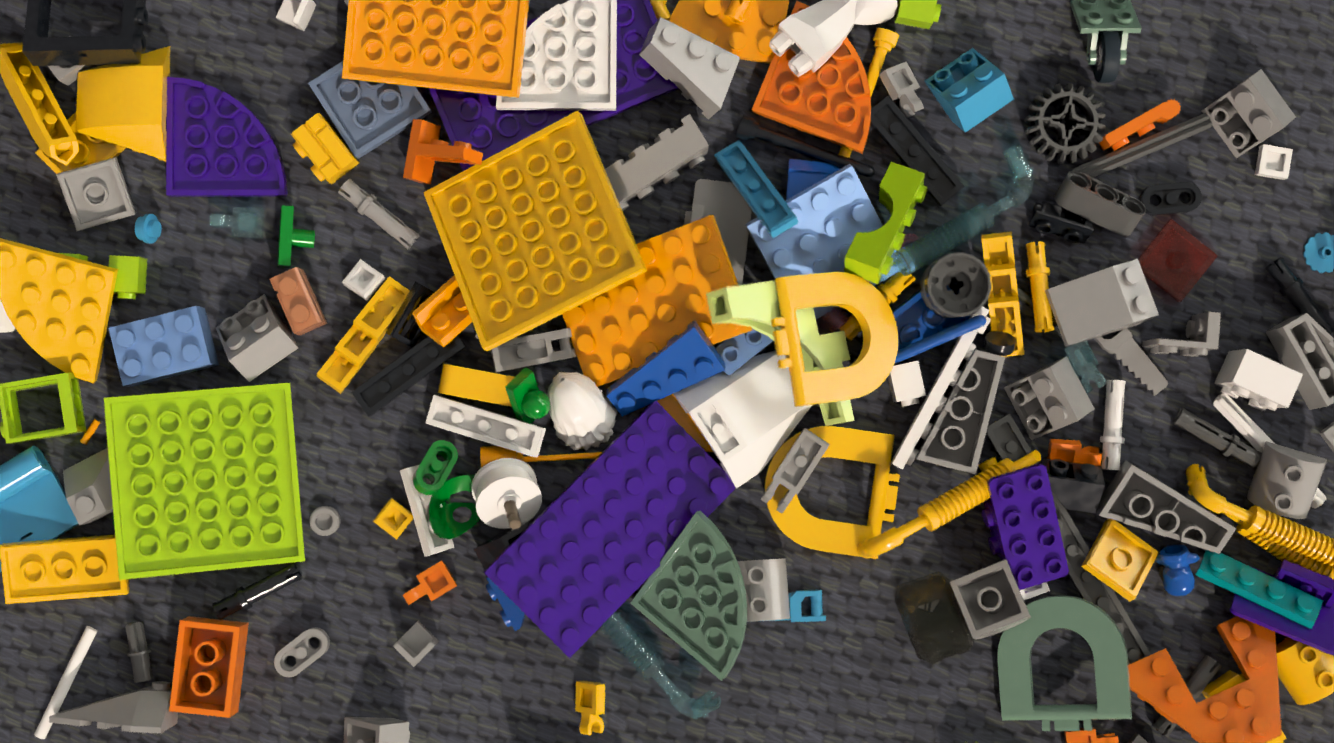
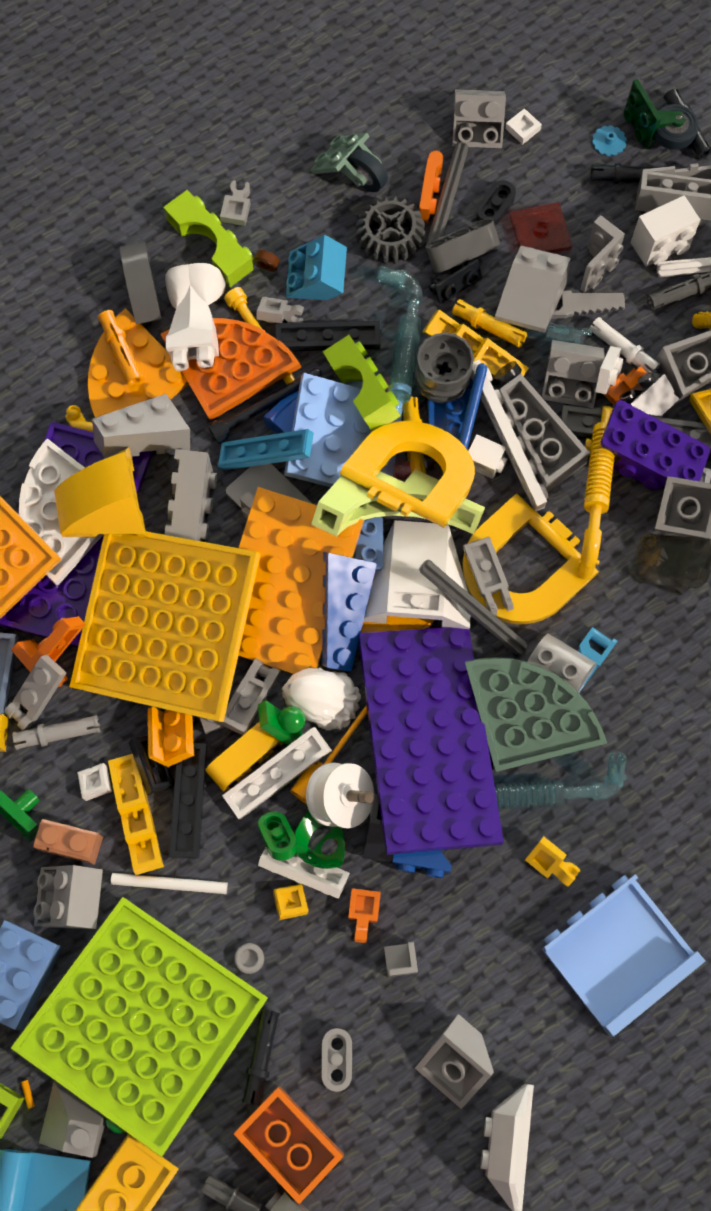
camera: 55 degrees left, 15 degrees down
(332, 408) = (169, 883): none -> white bar
(394, 171) = (35, 692): none -> light grey plate
(594, 88) = (100, 500): none -> yellow wedge
(752, 479) = (473, 607): none -> dark grey axle
(944, 36) = (266, 260): none -> reddish brown tile
(1066, 434) = (609, 370): none -> white plate

